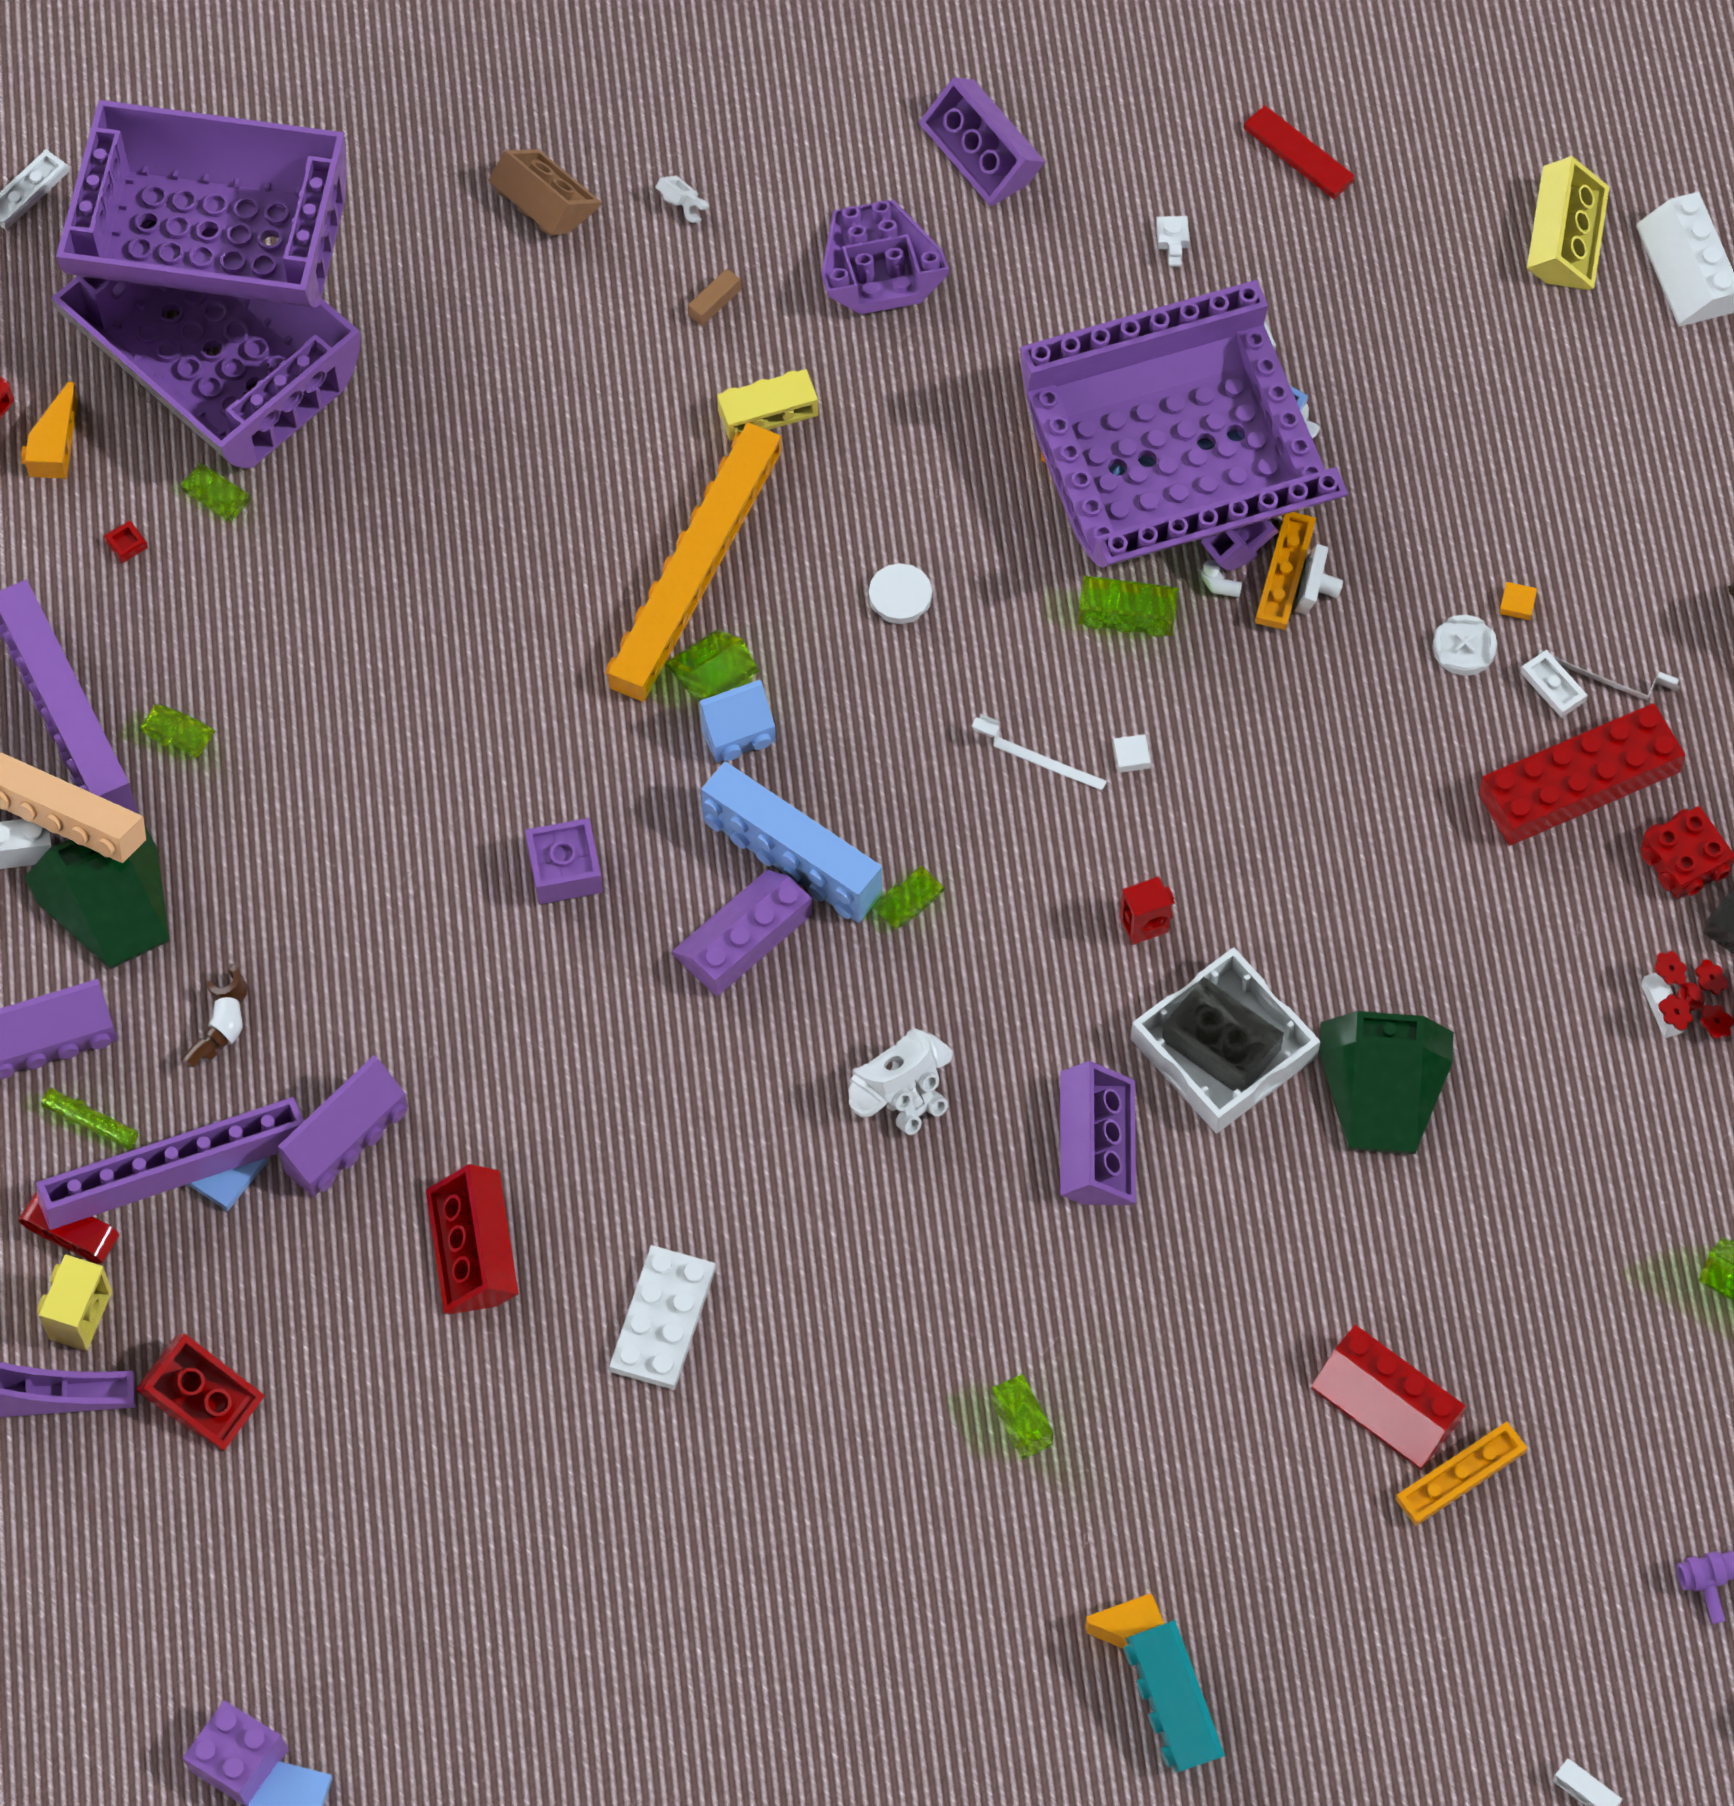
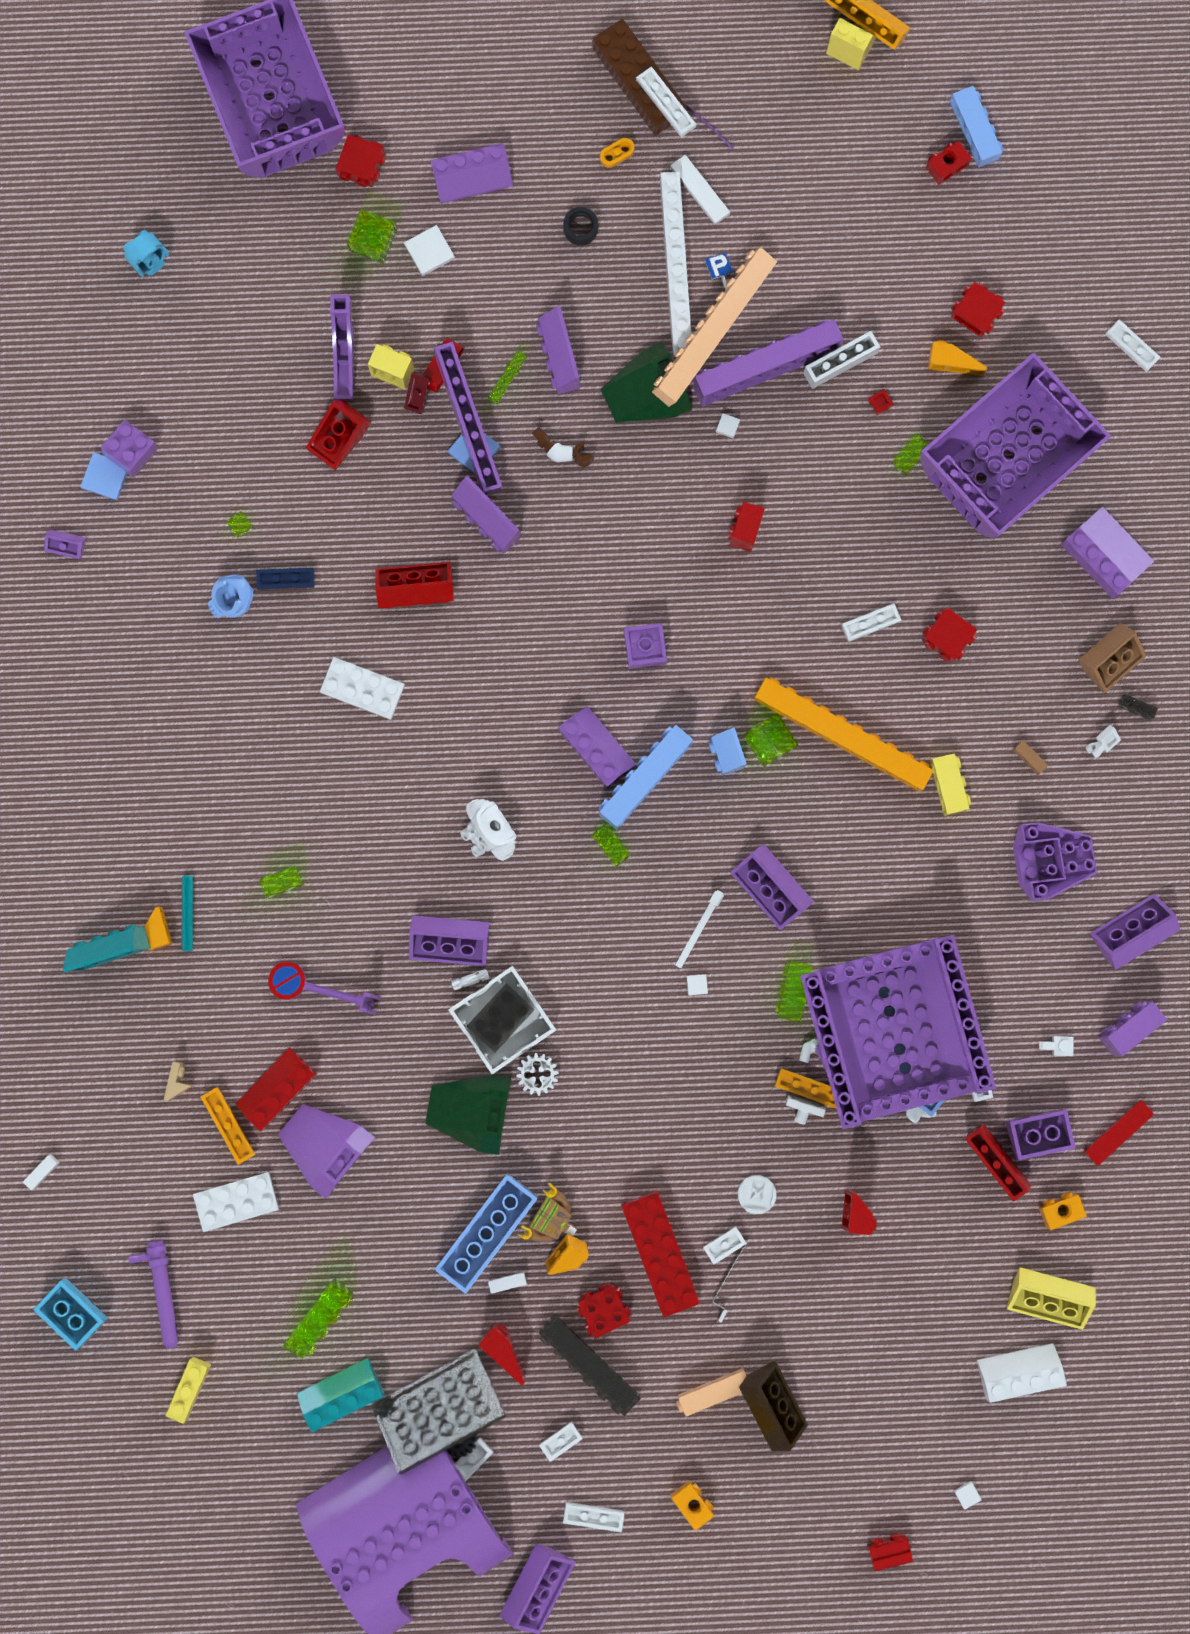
camera: 90 degrees right, 20 degrees up
(56, 595) = (841, 359): none -> white brick
(122, 1258) = (417, 392): none -> dark red plate
(171, 766) = (728, 425): none -> white tile
(172, 726) = (749, 428): clear neon green slope -> none
(198, 176) = (1105, 439): medium lavender slope -> none
(350, 716) = (747, 525): none -> red brick
(371, 1552) = (239, 524): none -> clear neon green tile
(384, 204) = (1107, 553): none -> slope
(469, 1460) = (285, 578): none -> dark blue plate
(503, 534) = (871, 622): none -> white tile
(509, 1545) = (230, 596): none -> light blue helmet
(520, 415) = (949, 635): none -> red brick
(622, 155) = (1138, 707): none -> clear smoke piece
(900, 593) = (814, 855): white tile -> none
(958, 649) = (771, 887): none -> medium lavender slope
(1092, 1578) = (187, 913): none -> teal axle
(1136, 132) = (1132, 1028): none -> medium lavender brick
(1146, 910) = (586, 982): red brick -> none
(1161, 1101) = (470, 979): none -> white axle
(1195, 1394) = (289, 980): none -> piece
(1316, 249) = (1040, 1134): none -> medium lavender brick
(1324, 991) = (546, 1081): none -> white gear
(1367, 303) = (998, 1162): none -> red brick
(1404, 1570) = (174, 1087): none -> tan slope
(1431, 202) = (1074, 1211): none -> light orange brick
(1477, 485) = (856, 1215): none -> red slope
(1479, 1308) = (323, 1146): none -> medium lavender wedge
(1518, 601) = (784, 1231): light orange tile -> none
(1547, 941) = (550, 1218): none -> medium nougat torso
(1587, 1035) = (486, 1233): none -> light blue brick
(1592, 1452) = (236, 1201): none -> white plate
(1607, 912) = (567, 1255): none -> light orange slope
(1690, 995) = (508, 1299): red plant -> none

